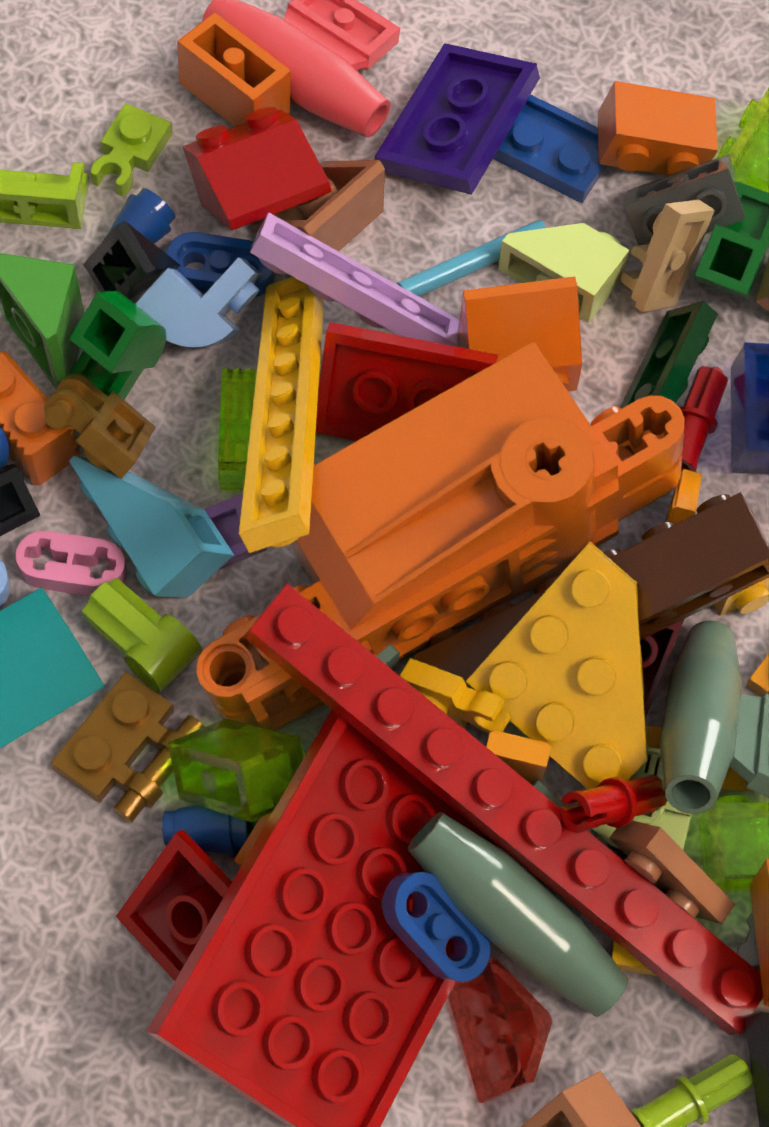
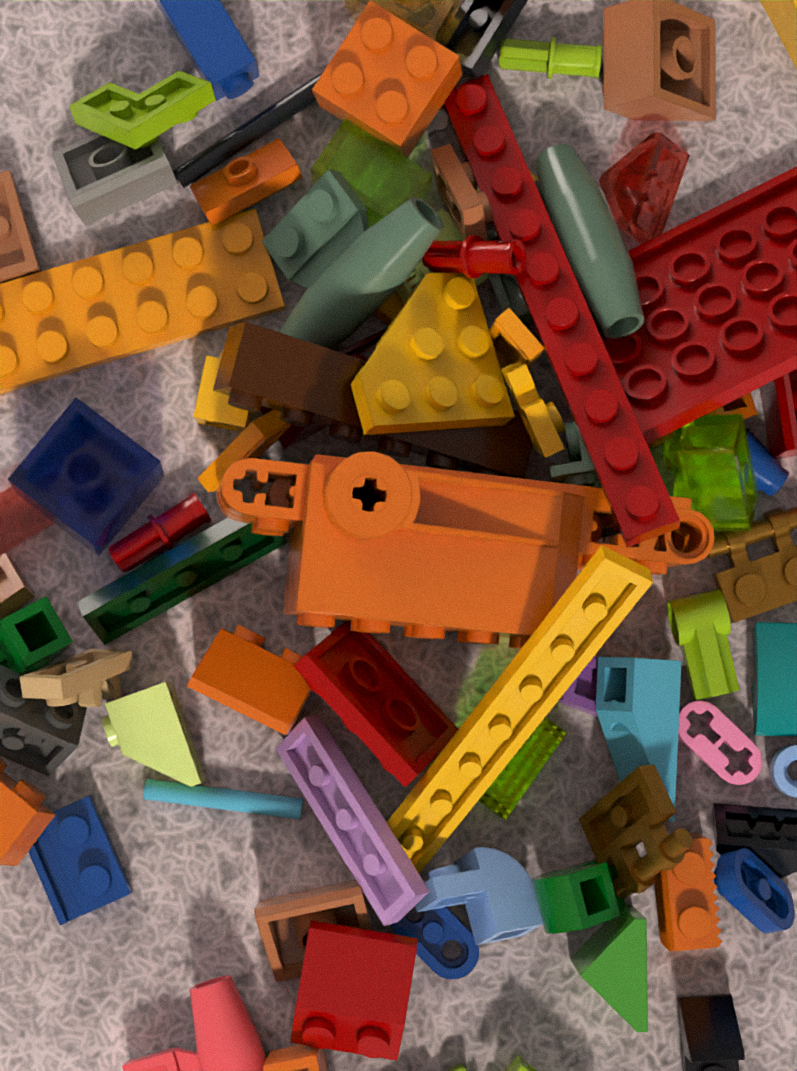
camera: 145 degrees left, 20 degrees up
(127, 262) = (518, 963): black slope -> none
(146, 214) = (478, 1014): blue cone -> none
(432, 925) = (657, 266): blue plate -> none
(457, 118) = (140, 938): dark purple plate -> none

